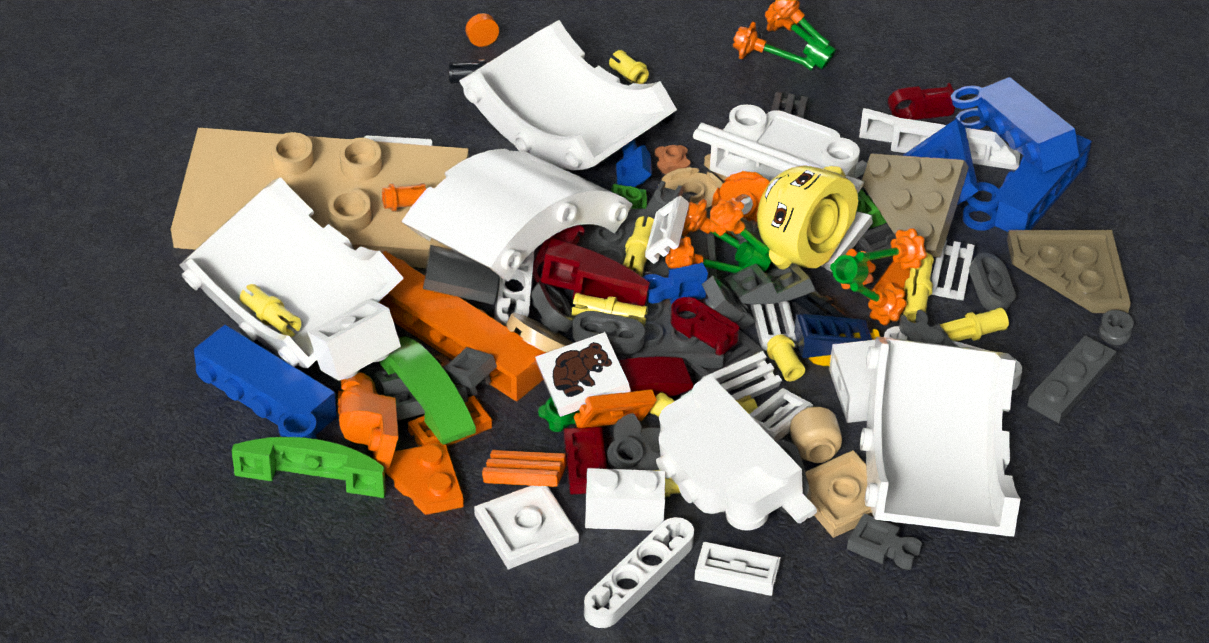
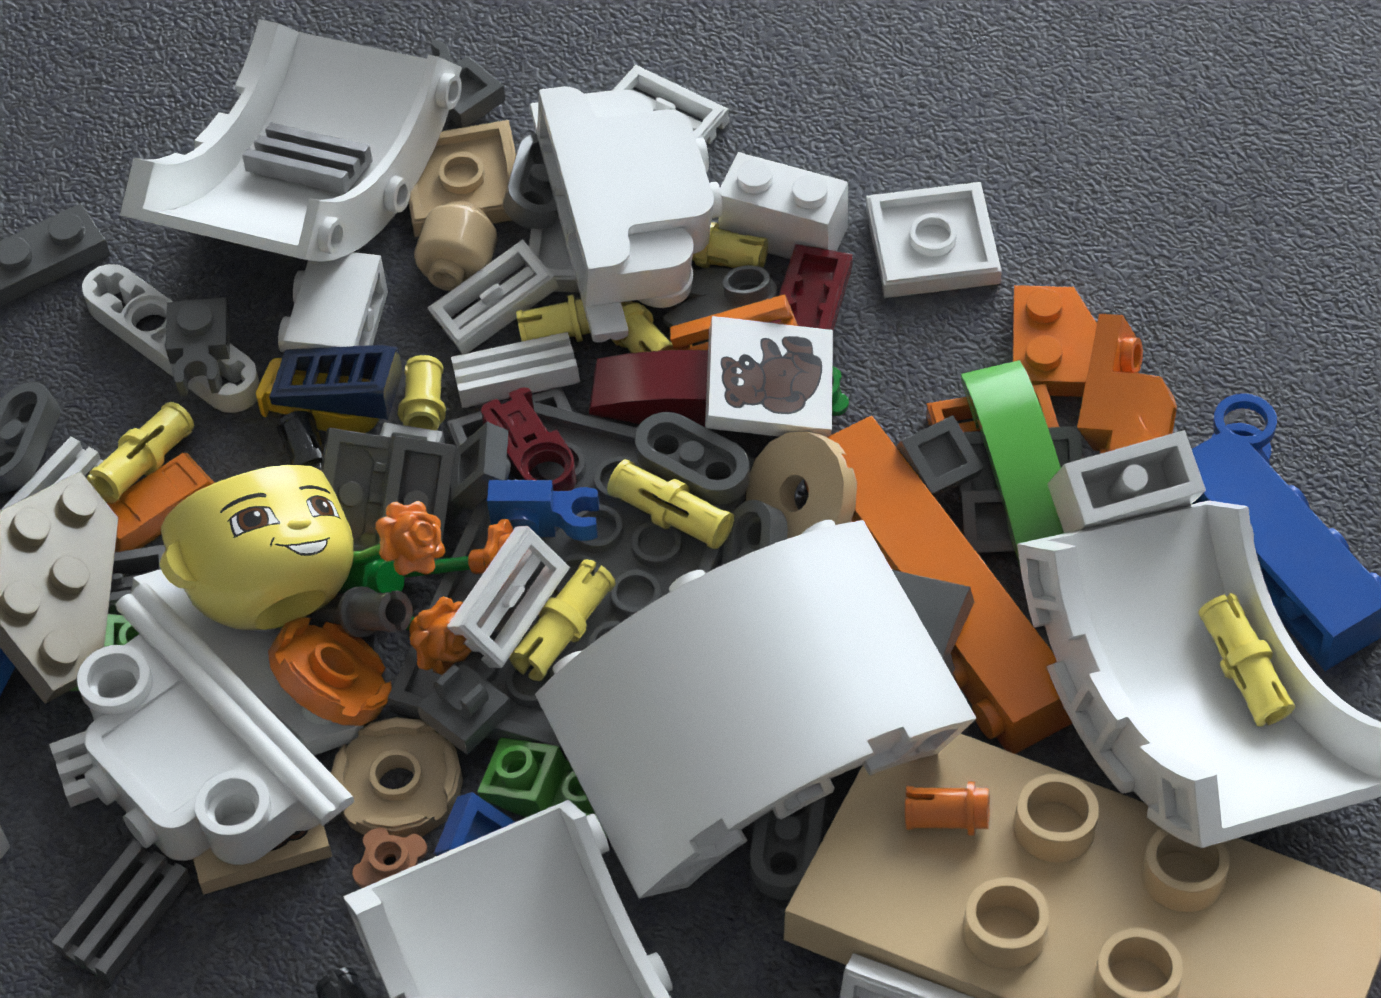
camera: 155 degrees left, 10 degrees up
(310, 457) = (1304, 415): bright green slope -> none
(524, 468) = (917, 282): orange tile -> none
(591, 274) = (659, 536): dark red slope -> none
(635, 569) = (808, 138): white beam -> none
(856, 268) = (206, 432): orange plant -> none
(938, 452) = (308, 158): none -> flat silver tile
(976, 325) = (101, 377): light yellow axle -> none

